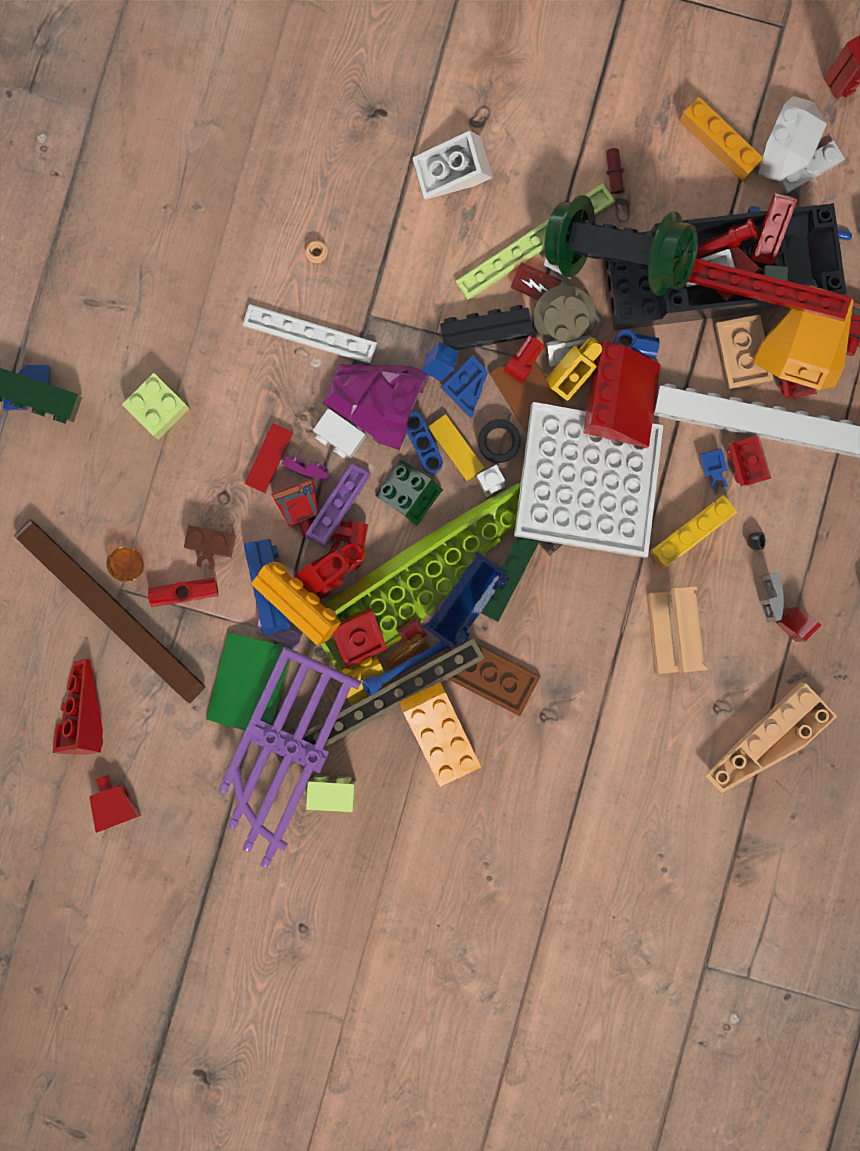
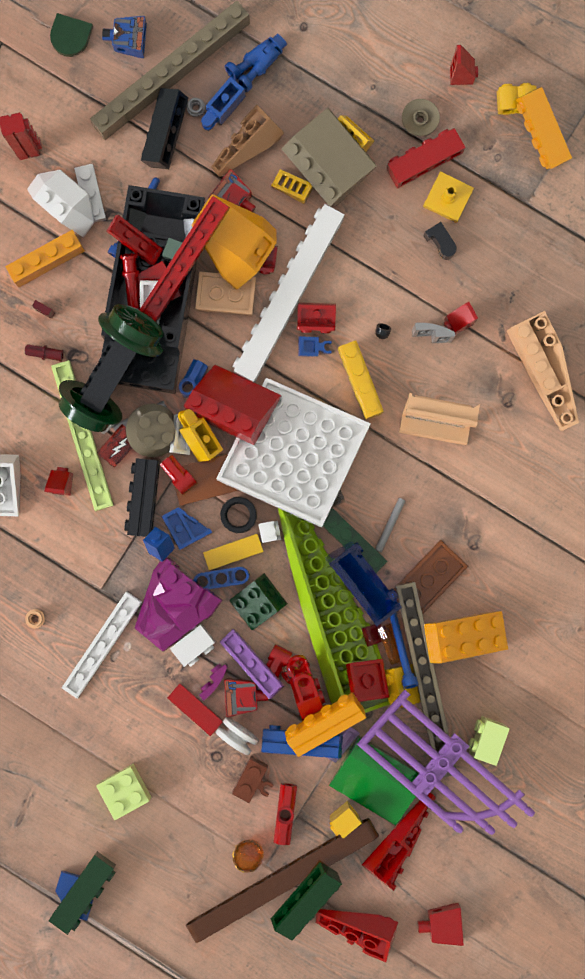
camera: 75 degrees left, 0 degrees up
(94, 643) = (306, 901): none -> dark green brick
(172, 723) = (388, 857): none -> red wedge
(195, 659) = (344, 820): none -> yellow brick
(253, 512) = (237, 736): none -> white wheel
(475, 231) = (59, 482): none -> red slope
(539, 614) = (390, 524): none -> light grey bar
(663, 155) = (43, 309): none -> dark red tile

